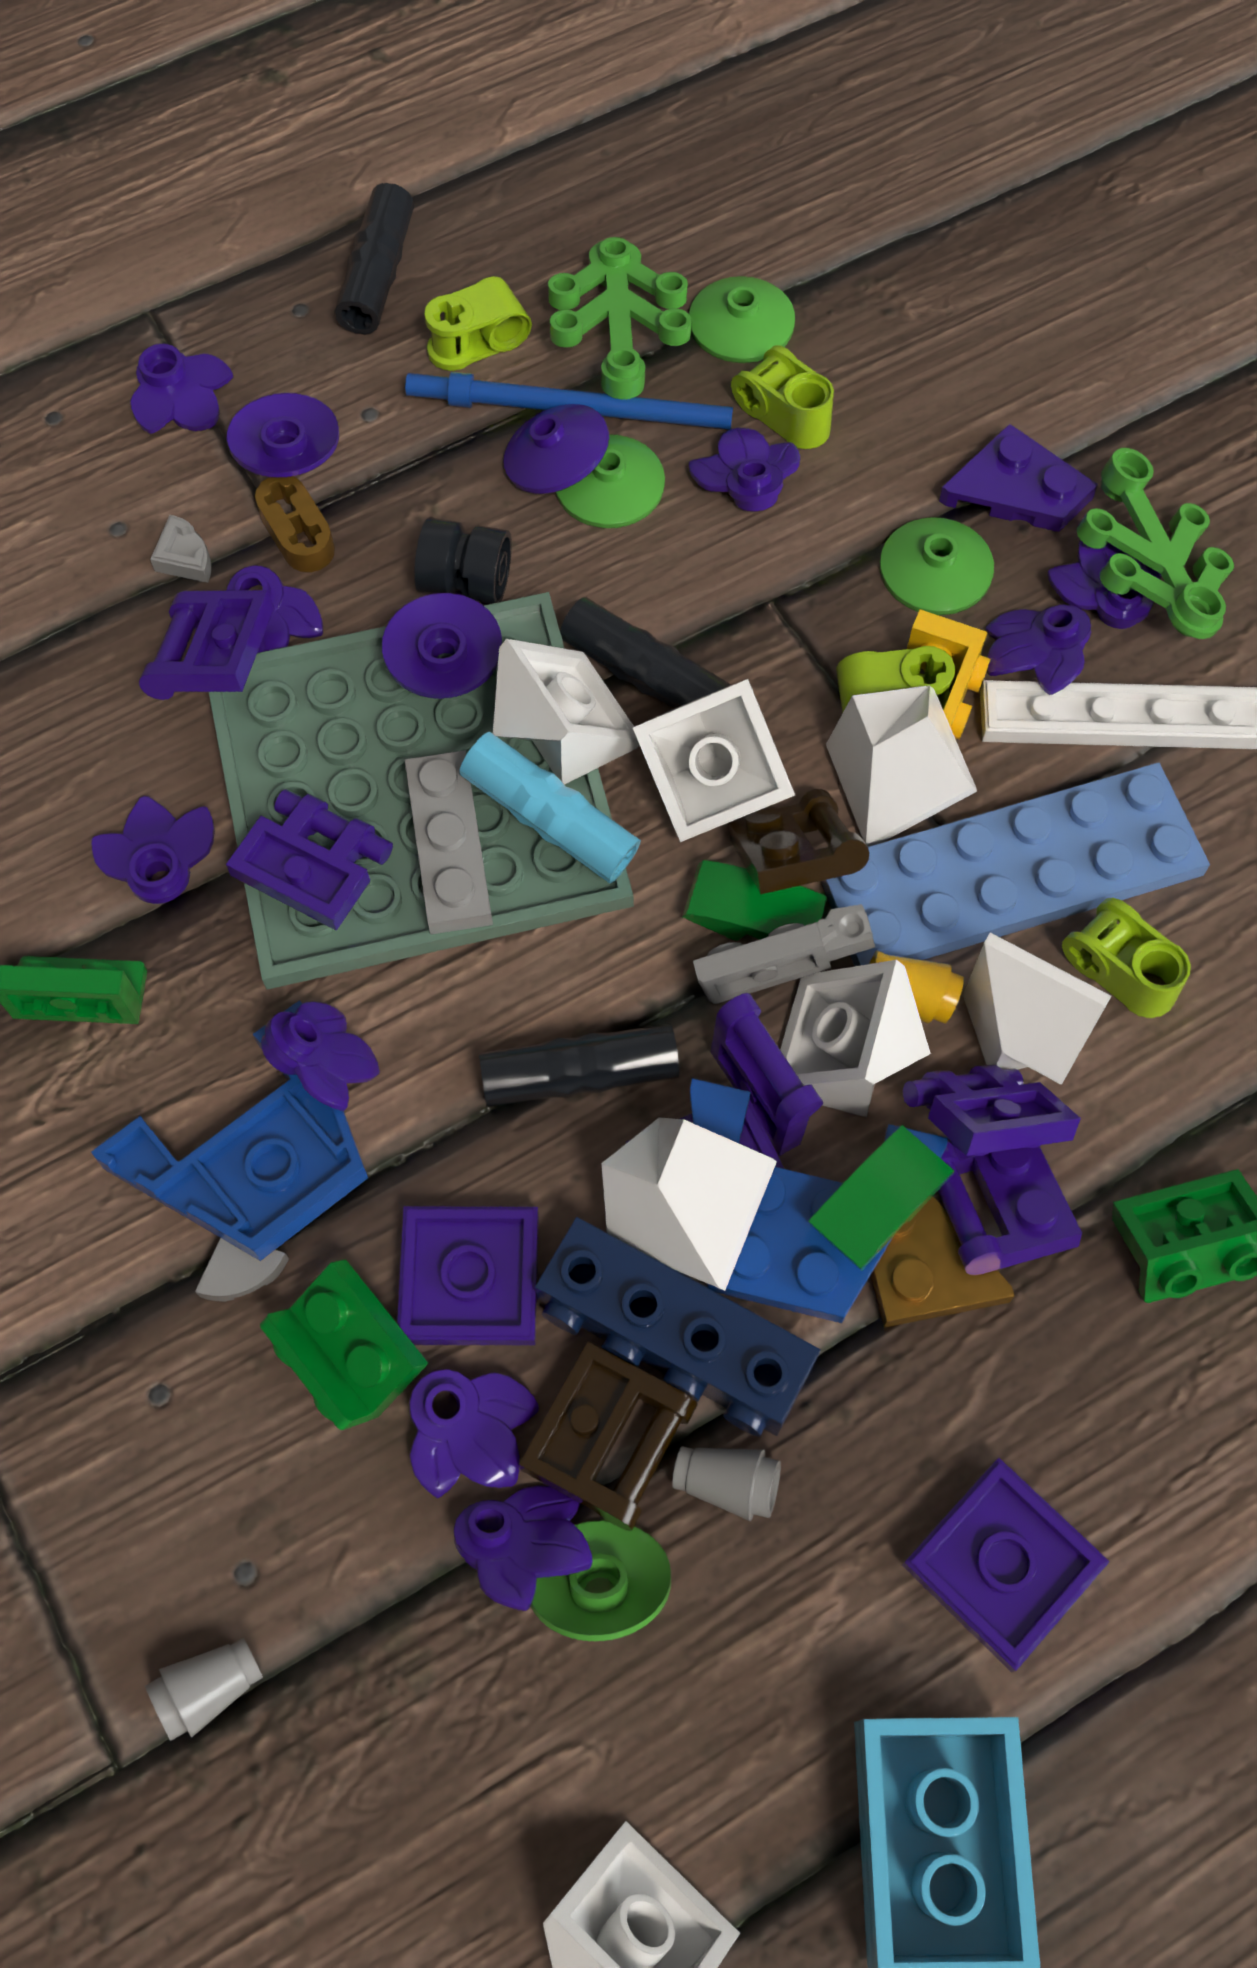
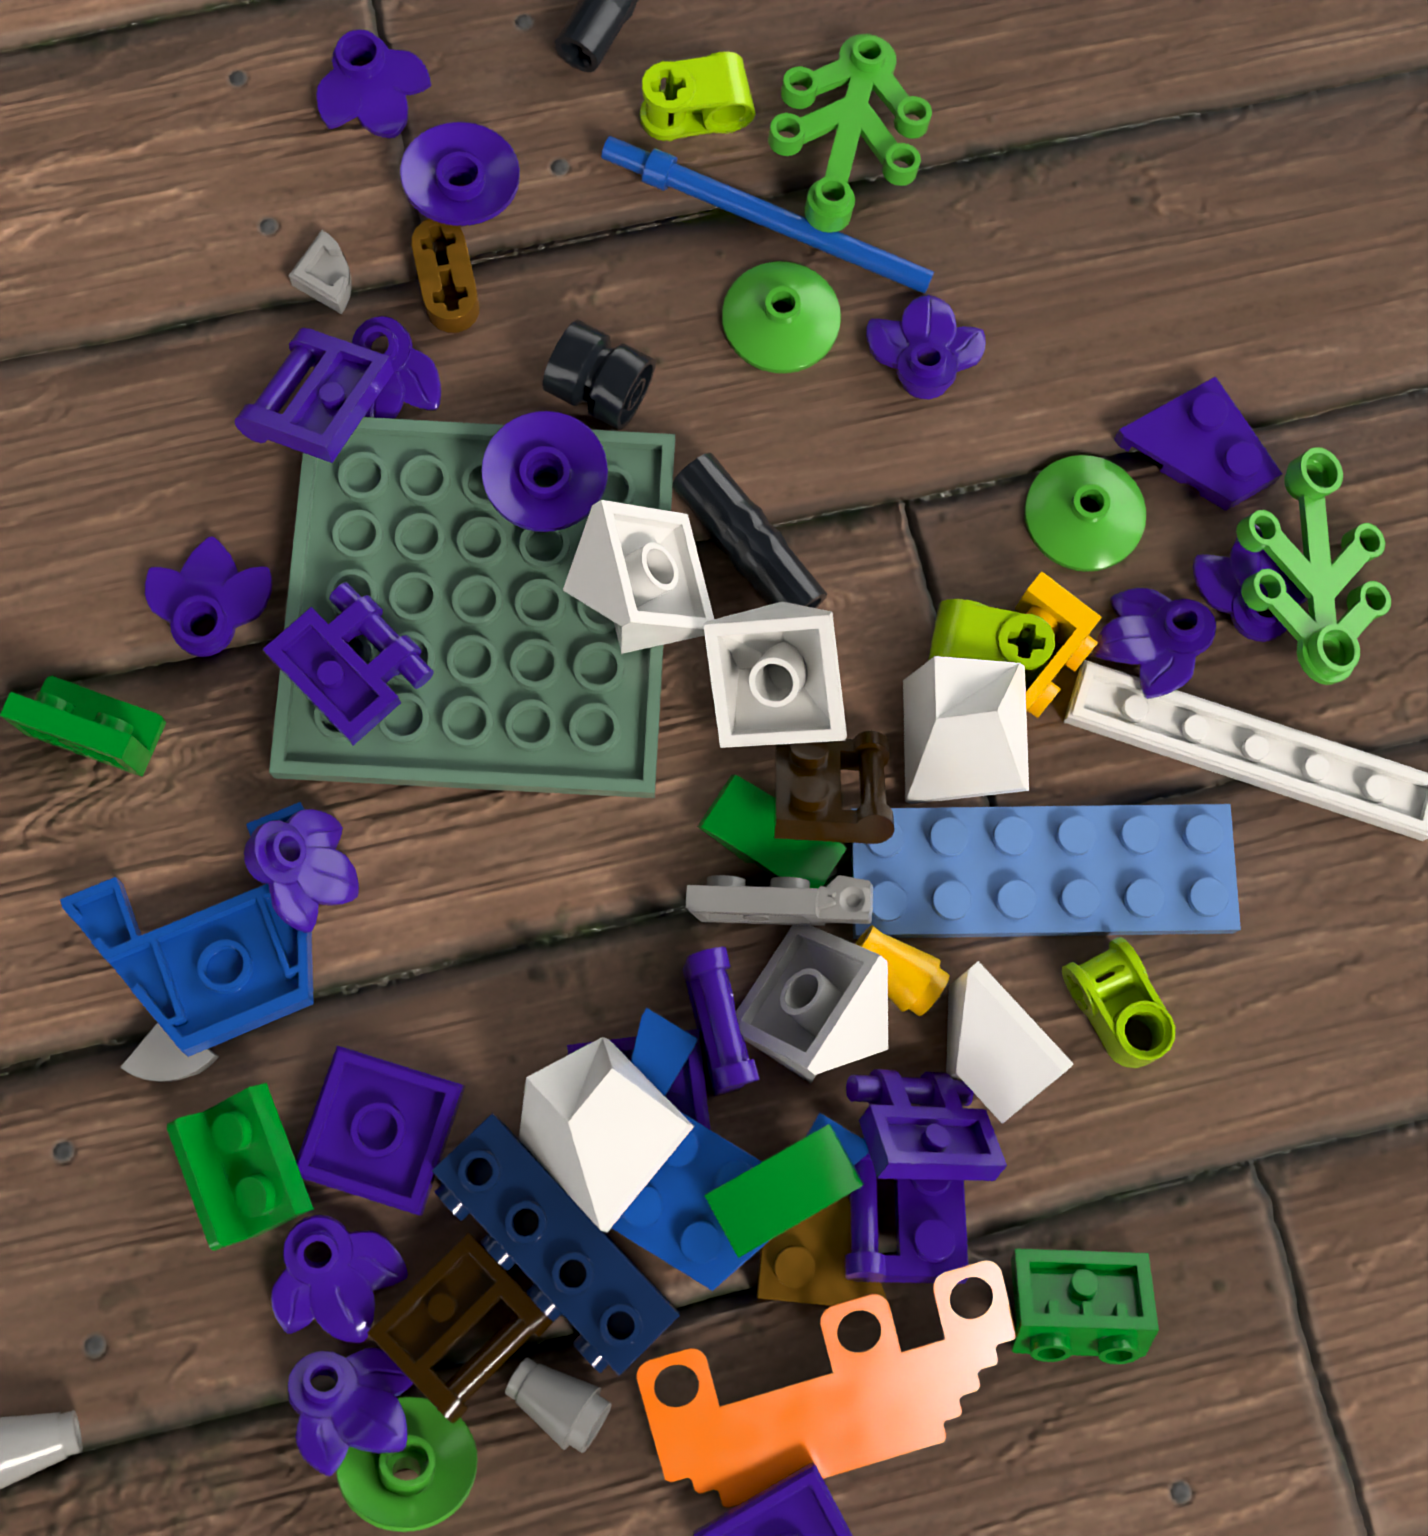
camera: 10 degrees right, 10 degrees up
(448, 844) = (489, 683): light grey plate -> none
(549, 807) = (596, 682): medium azure axle -> none
(556, 448) = (735, 268): dark purple dish -> none
(579, 1065) = (546, 951): black axle -> none
(741, 319) = (978, 186): bright green dish -> none
(790, 398) = (991, 268): lime piece -> none
(1015, 1408) = (858, 1415): none -> orange piece

